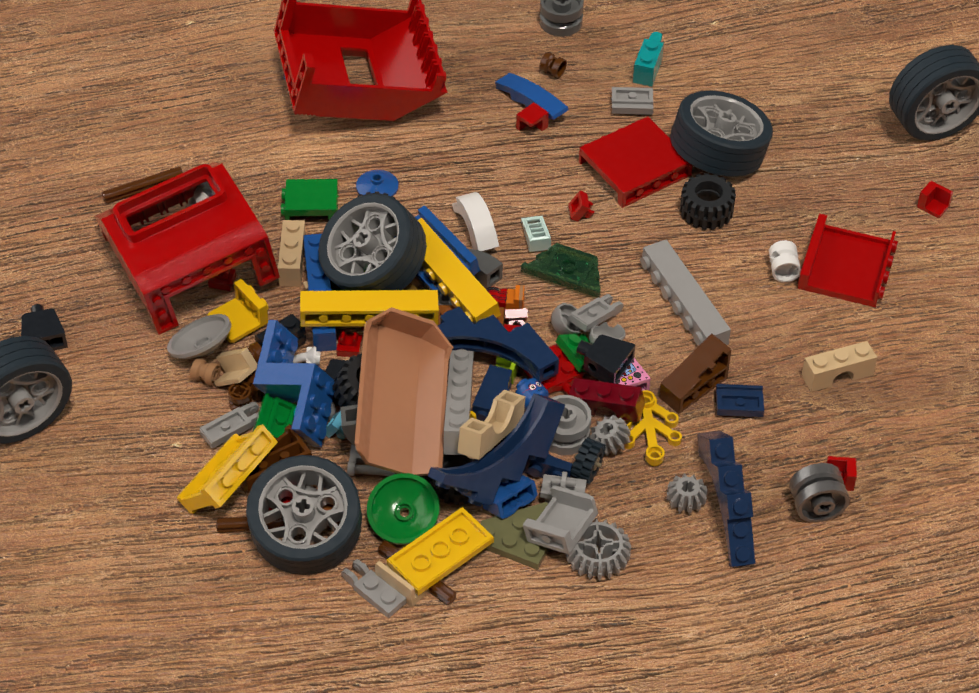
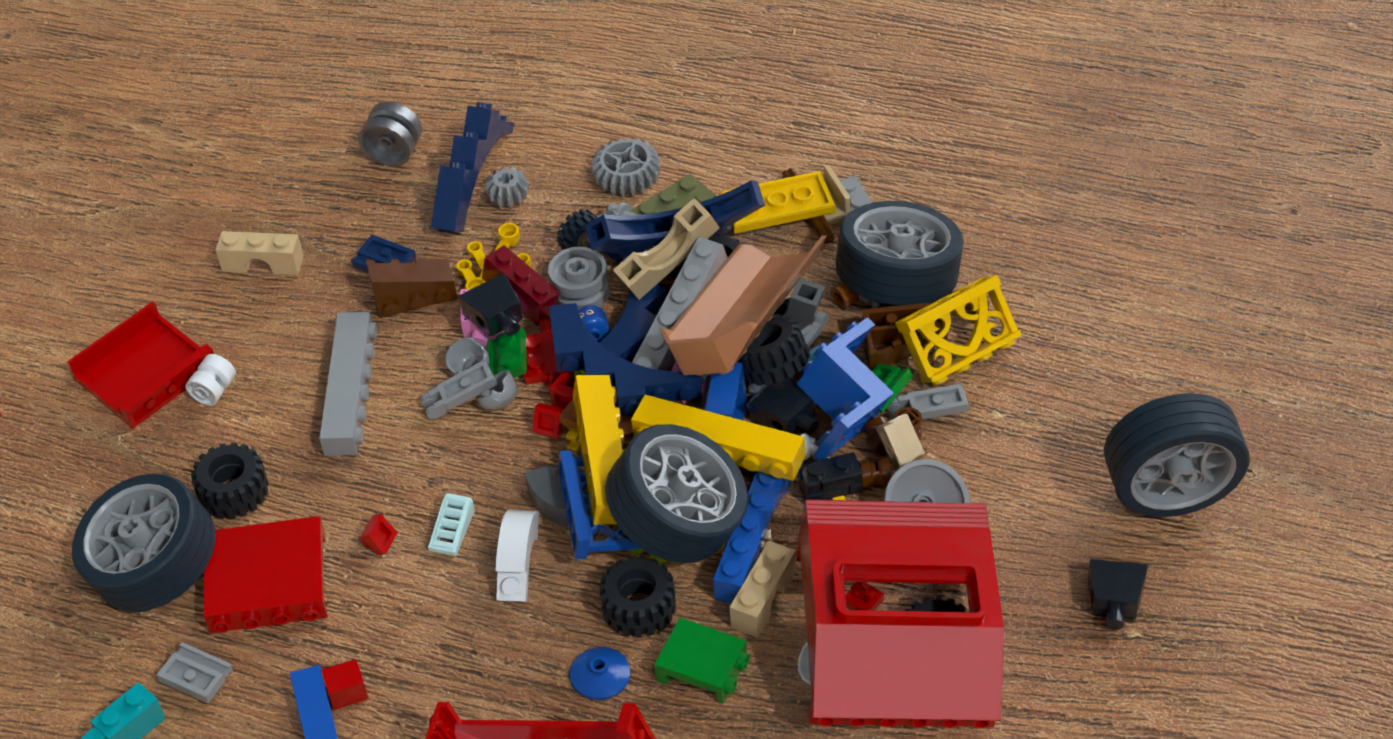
camera: 150 degrees left, 0 degrees up
(394, 496) = (792, 238): green dish -> none
(508, 297) = (543, 445): leg -> none
(562, 520) = (650, 178): light grey panel -> none
(566, 268) = (450, 462): clear green wing -> none
(612, 433) = (539, 253): light grey gear -> none
(847, 468) = (345, 163): red panel -> none

